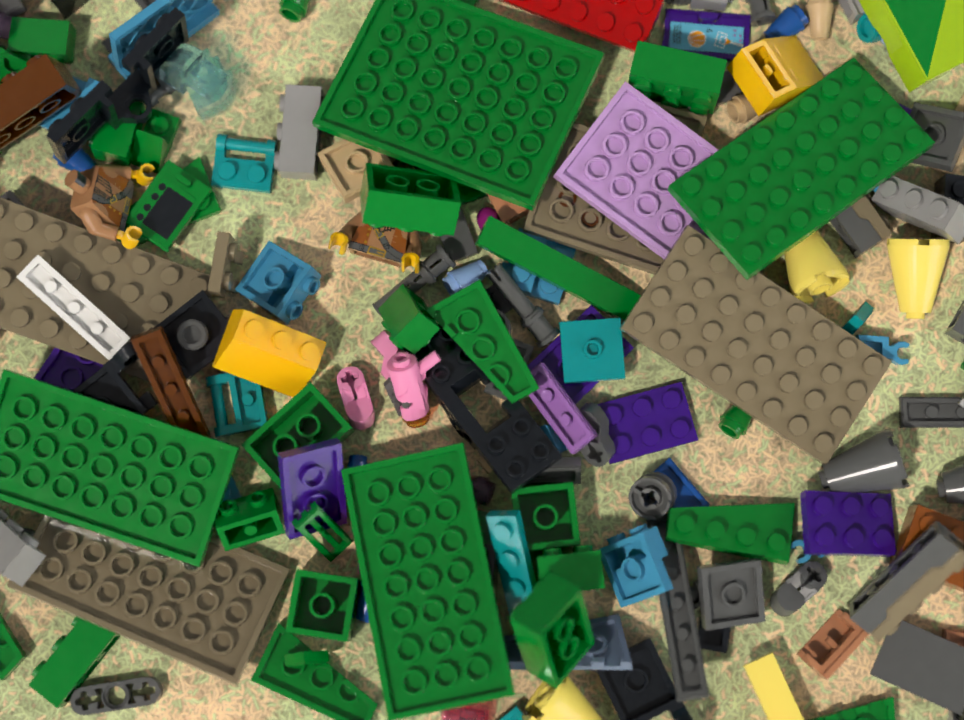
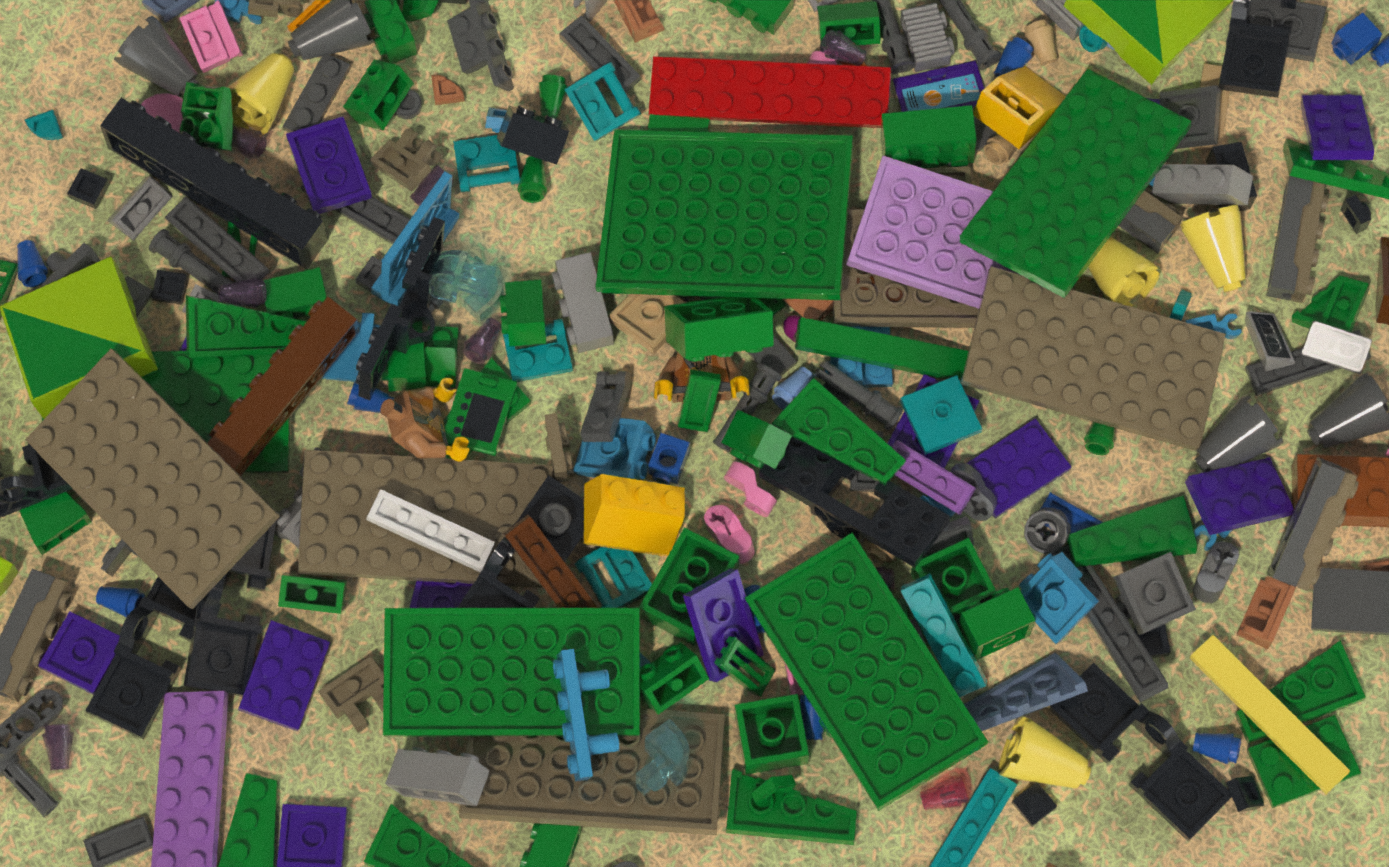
camera: 25 degrees left, 10 degrees down
(134, 547) = (574, 729): none -> dark azure plate
(195, 140) = (482, 342): none -> cone
(220, 599) = (670, 758): none -> clear light blue brick
(240, 125) = (524, 313): none -> green brick
(283, 239) = (606, 406): none -> dark grey plate
(328, 295) = (668, 447): none -> blue brick
(370, 262) = (699, 400): none -> green tile
(407, 387) = (778, 505): bright pink piece -> none
(552, 629) = (1001, 670): green brick -> none
(931, 379) = (1268, 340): none -> slope

